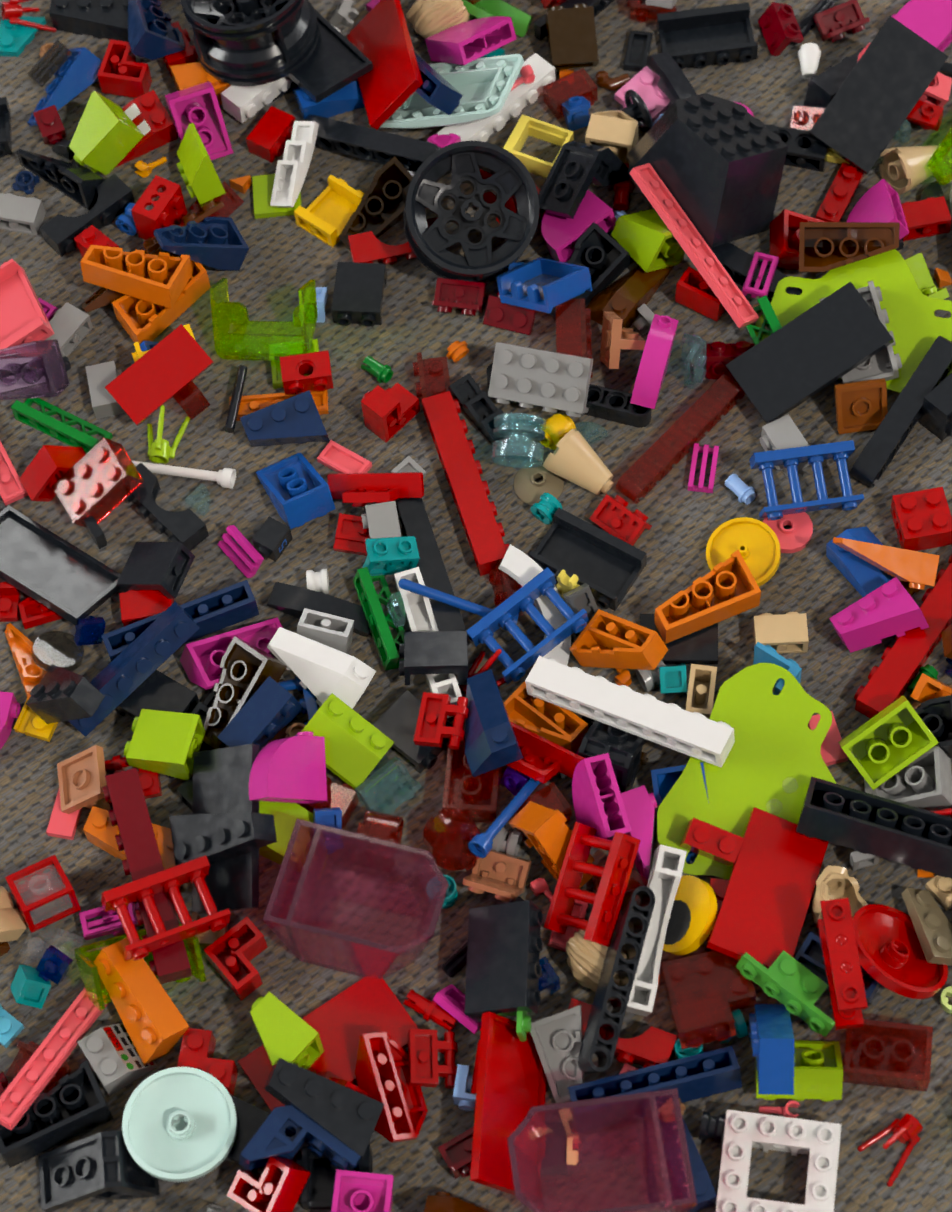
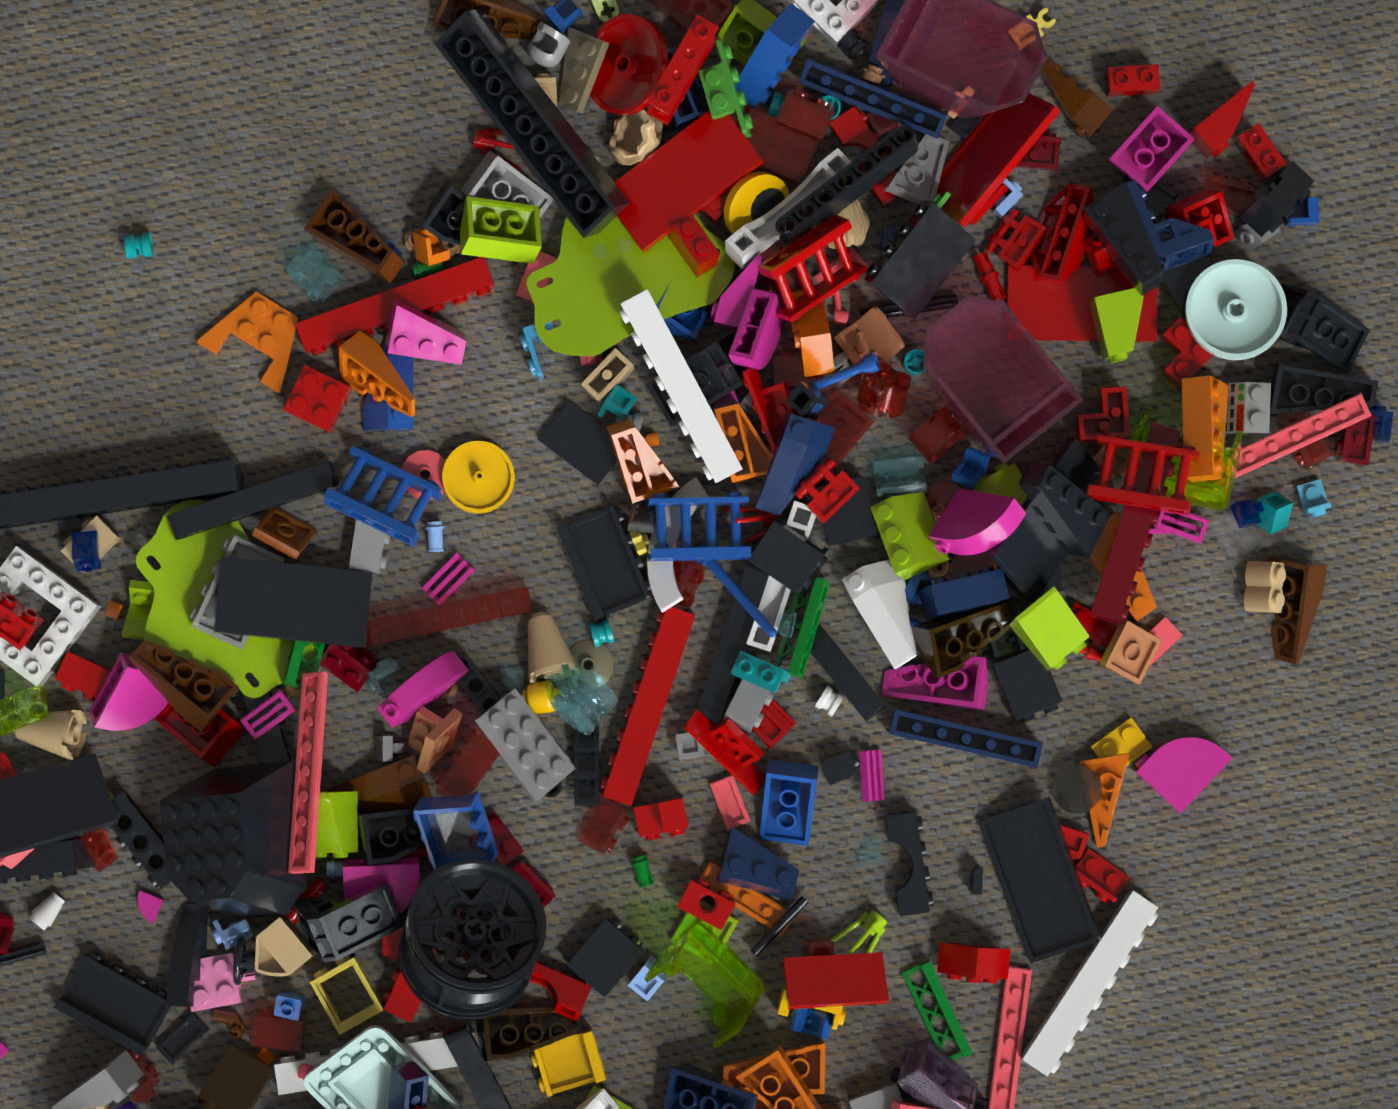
camera: 150 degrees left, 25 degrees up
(43, 893) = (1219, 576): piece -> none
(64, 696) = (1100, 729): black wedge -> none
(89, 631) = (1040, 788): clear blue tile -> none
(97, 482) = (949, 918): clear red brick -> none
(102, 401) = (880, 1021): light grey brick -> none
(139, 662) = (1033, 718): dark blue brick -> none
(141, 604) = (979, 777): red brick -> none
(156, 567) = (954, 801): black panel -> none
(224, 477) = (838, 858): white piece -> none
(326, 629) = (857, 645): light grey brick -> none
(444, 140) = (428, 1053): dark pink tile -> none
(453, 1002) = (973, 269): dark pink tile -> none
(457, 350) = (564, 838): orange plate -> none
(511, 776) = (808, 400): none -> black brick
(619, 520) = (550, 578): red bracket -> none
(697, 295) = (333, 744): red brick -> none
(709, 600) = (538, 447): orange wedge -> none
(779, 27) = (45, 963): dark red bracket -> none
(783, 632) = (504, 386): tan brick -> none
(840, 193) = (133, 754): red plate -> none
(932, 190) = (58, 696): black tile -> none

